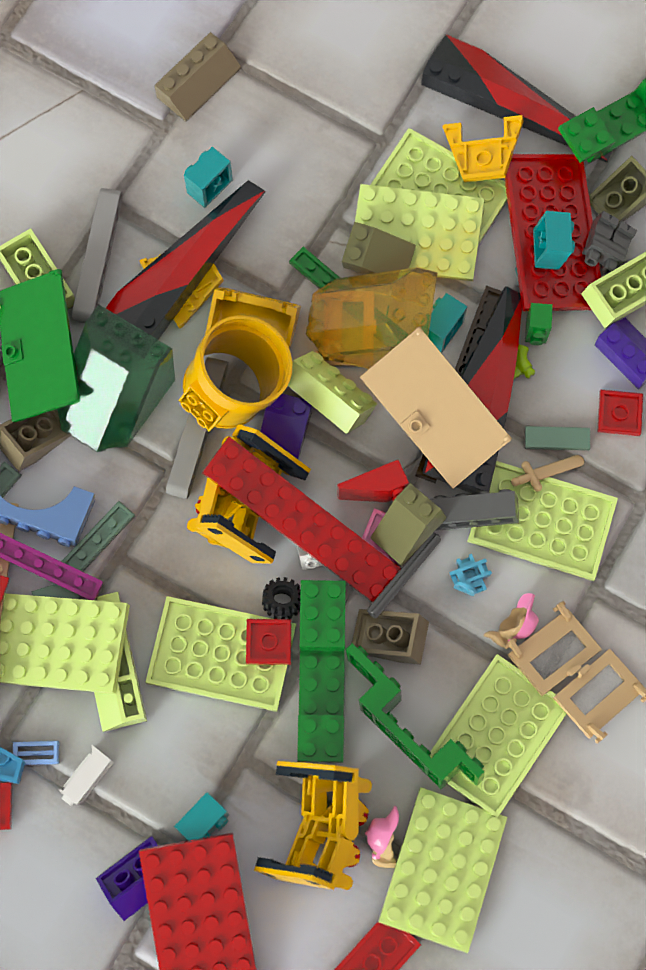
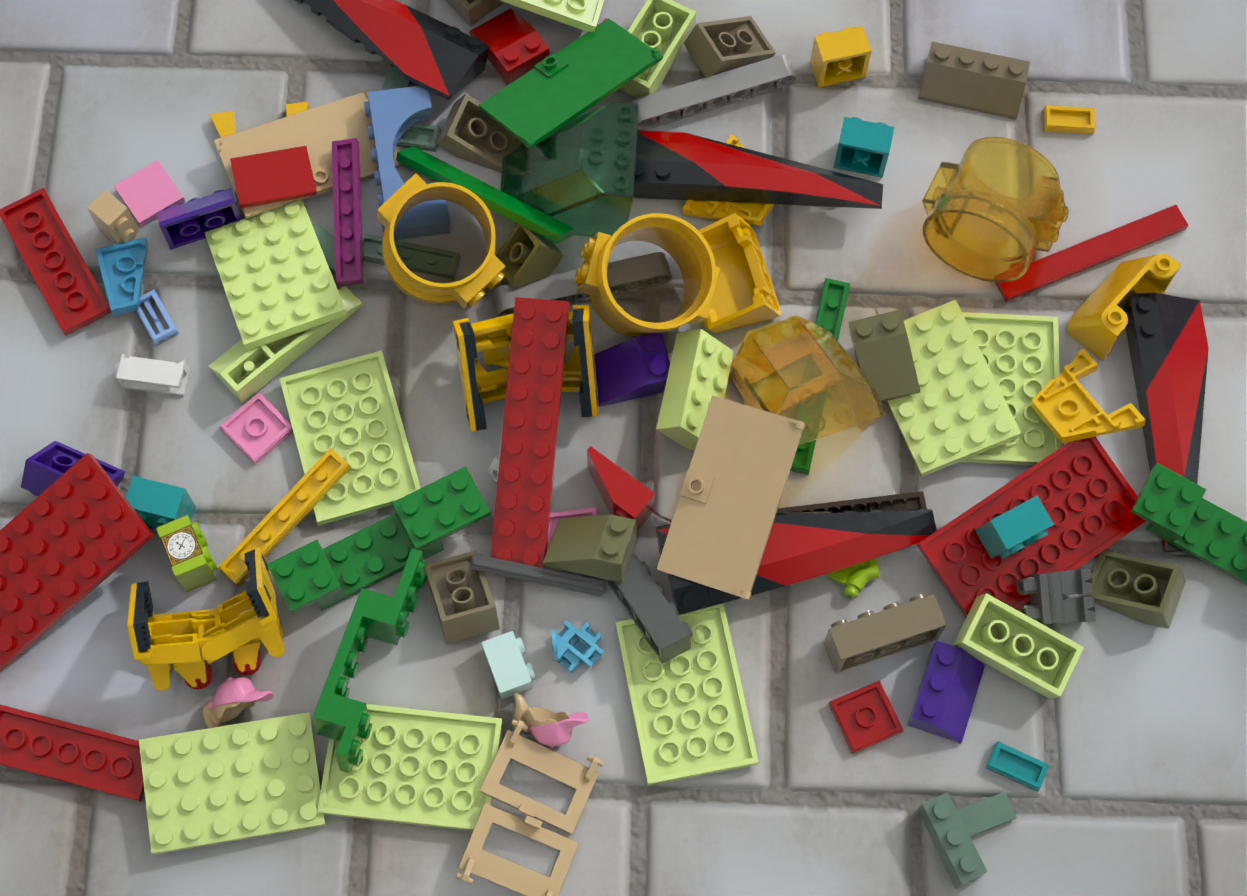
camera: 60 degrees right, 5 degrees down
(67, 224) = (727, 45): none -> dark tan slope
(87, 456) = (493, 198): none -> green tile
(92, 537) = (466, 291): none -> yellow cylinder
(126, 151) = (840, 56): none -> yellow brick
(154, 452) = (527, 257): none -> olive slope
(173, 719) = (257, 428): none -> bright pink tile
(251, 816) = (188, 553): none -> lime brick
(259, 731) = (286, 514): none -> yellow tile
(263, 35) = (1069, 119): none -> yellow tile
(268, 641) = (386, 474): red tile -> none
(281, 587) = (443, 450): black tyre -> none
(315, 118) = (994, 209): none -> clear yellow cylinder
(371, 81) = (1095, 251): none -> red tile
(424, 100) = (1100, 318): none -> yellow windscreen
(446, 320) = (847, 466): teal brick -> none
(459, 629) = (508, 665): none -> light aqua brick
(534, 475) = (729, 654): tan sword -> none
(538, 323) = (910, 568): green brick -> none
(557, 438) = (793, 662): sand green tile -> none
(573, 366) = (884, 632): none -> dark tan brick

